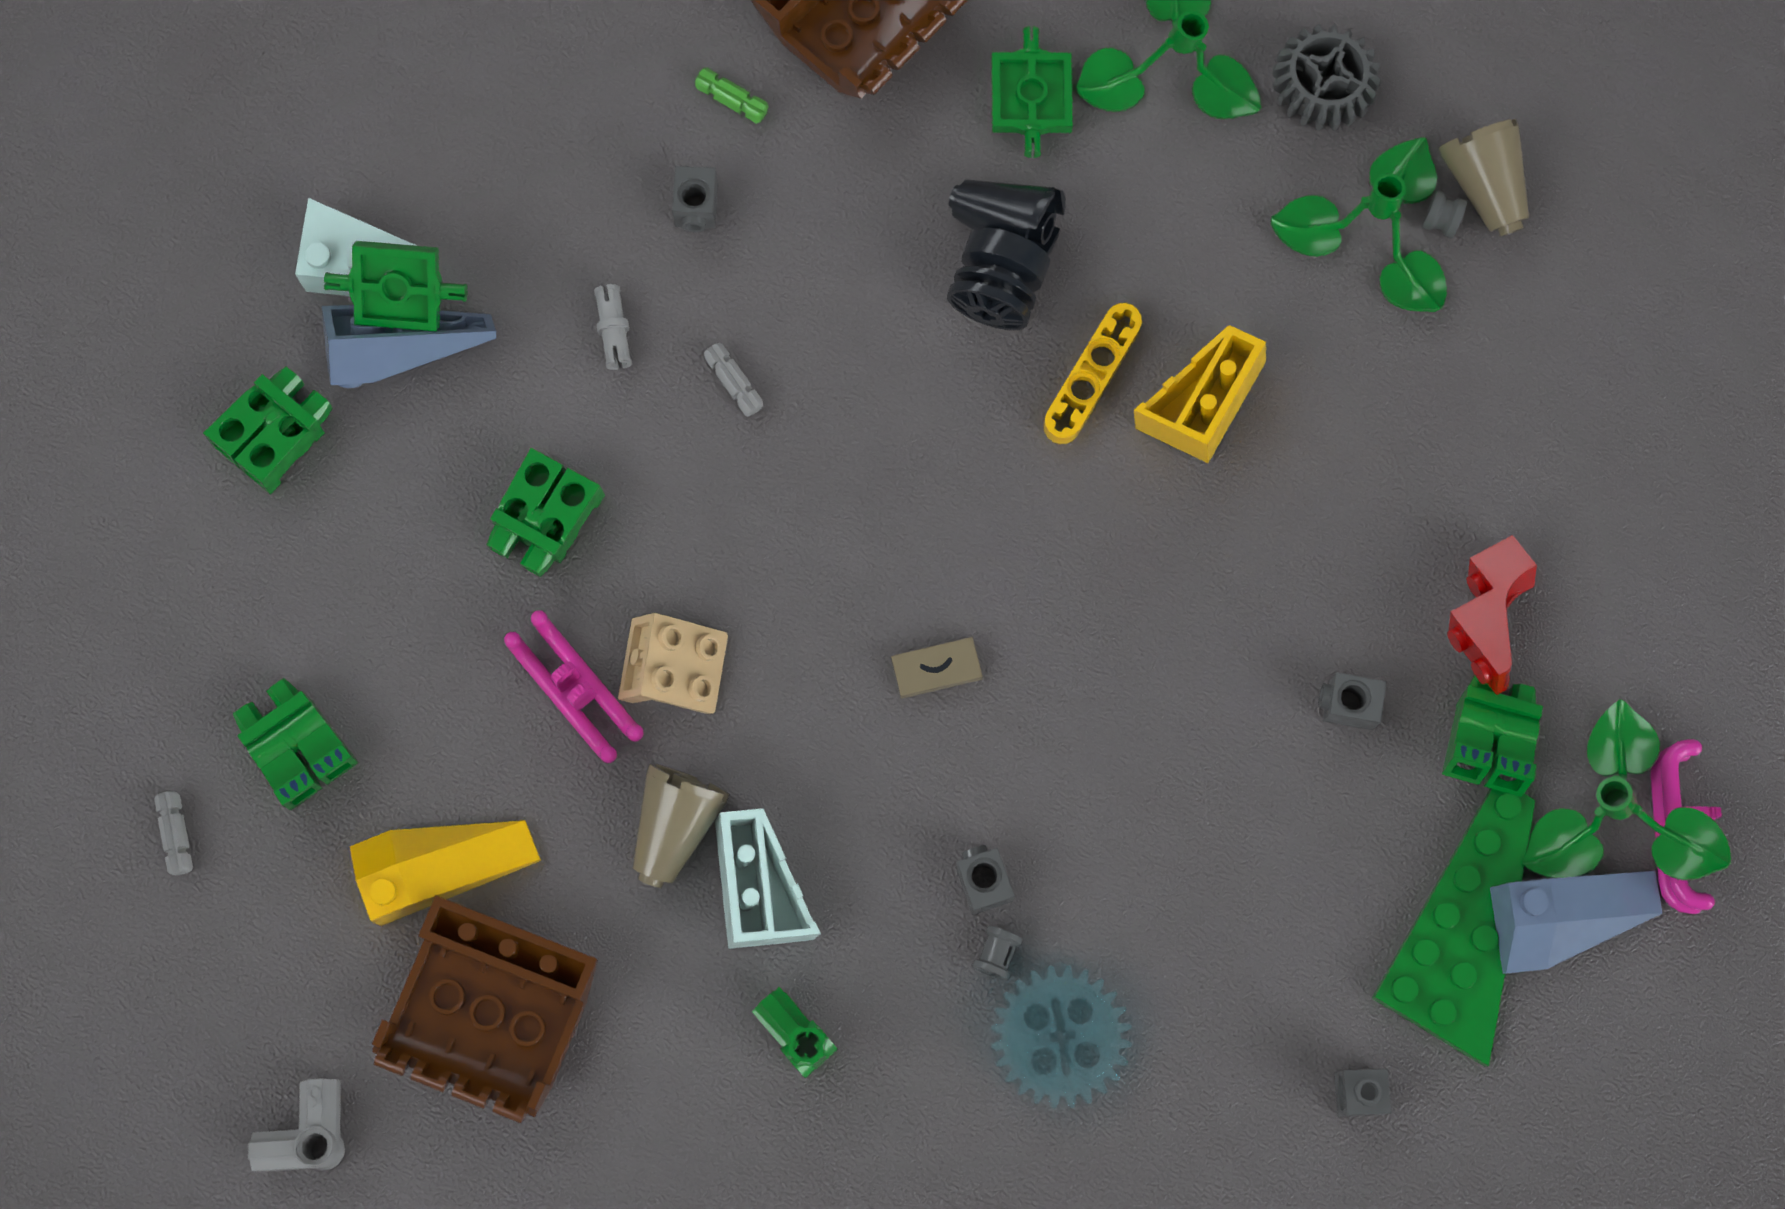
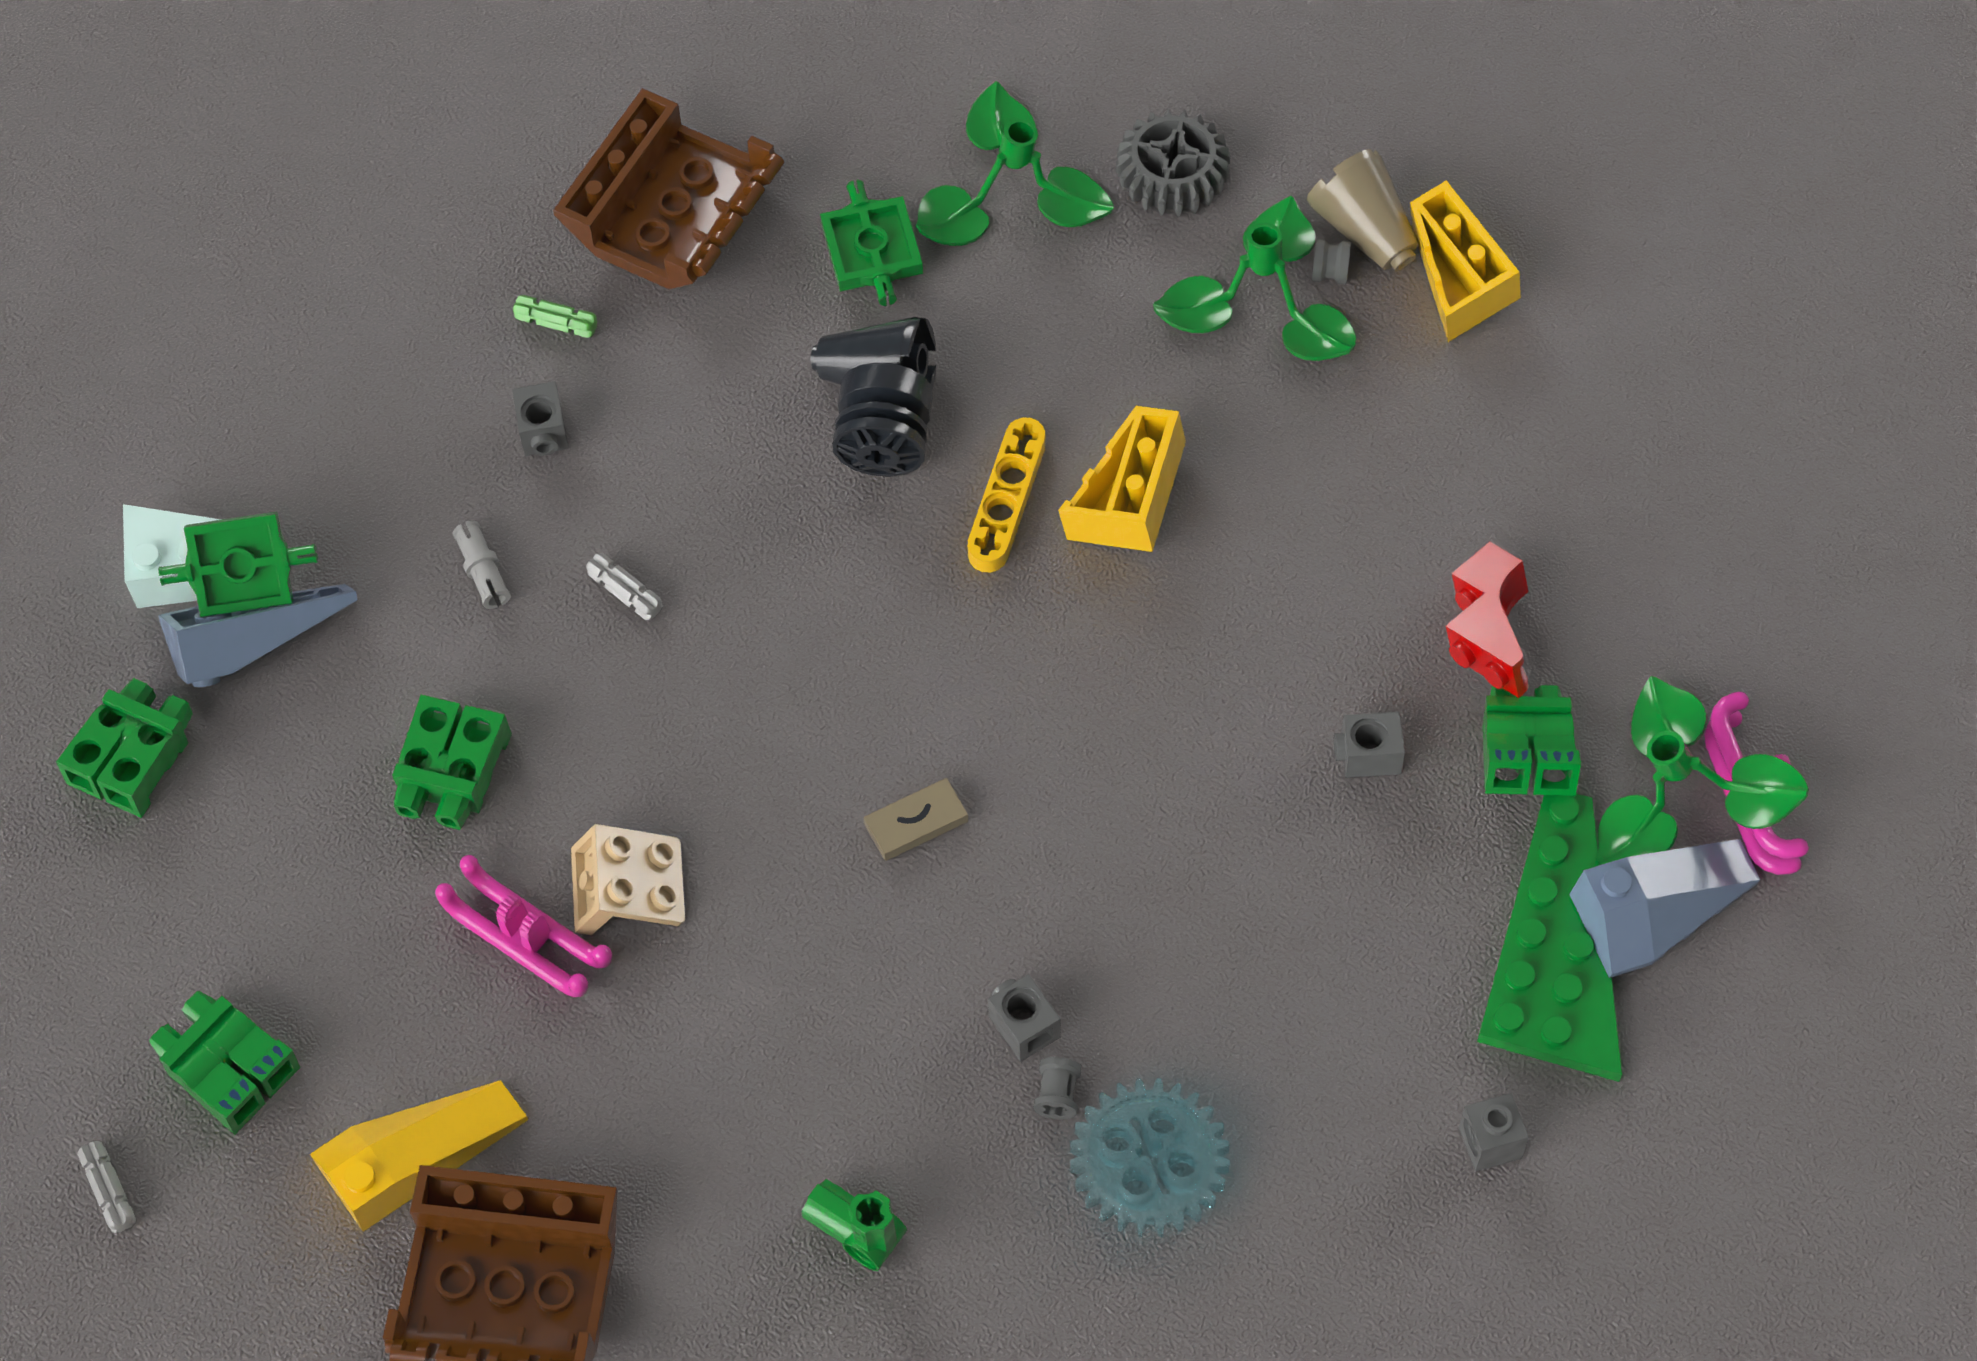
camera: 10 degrees left, 15 degrees down
(673, 822) = (666, 1034): dark tan cone -> none
(757, 885) = (775, 1078): light aqua wedge -> none
(1562, 245) = (1462, 261): none -> yellow wedge

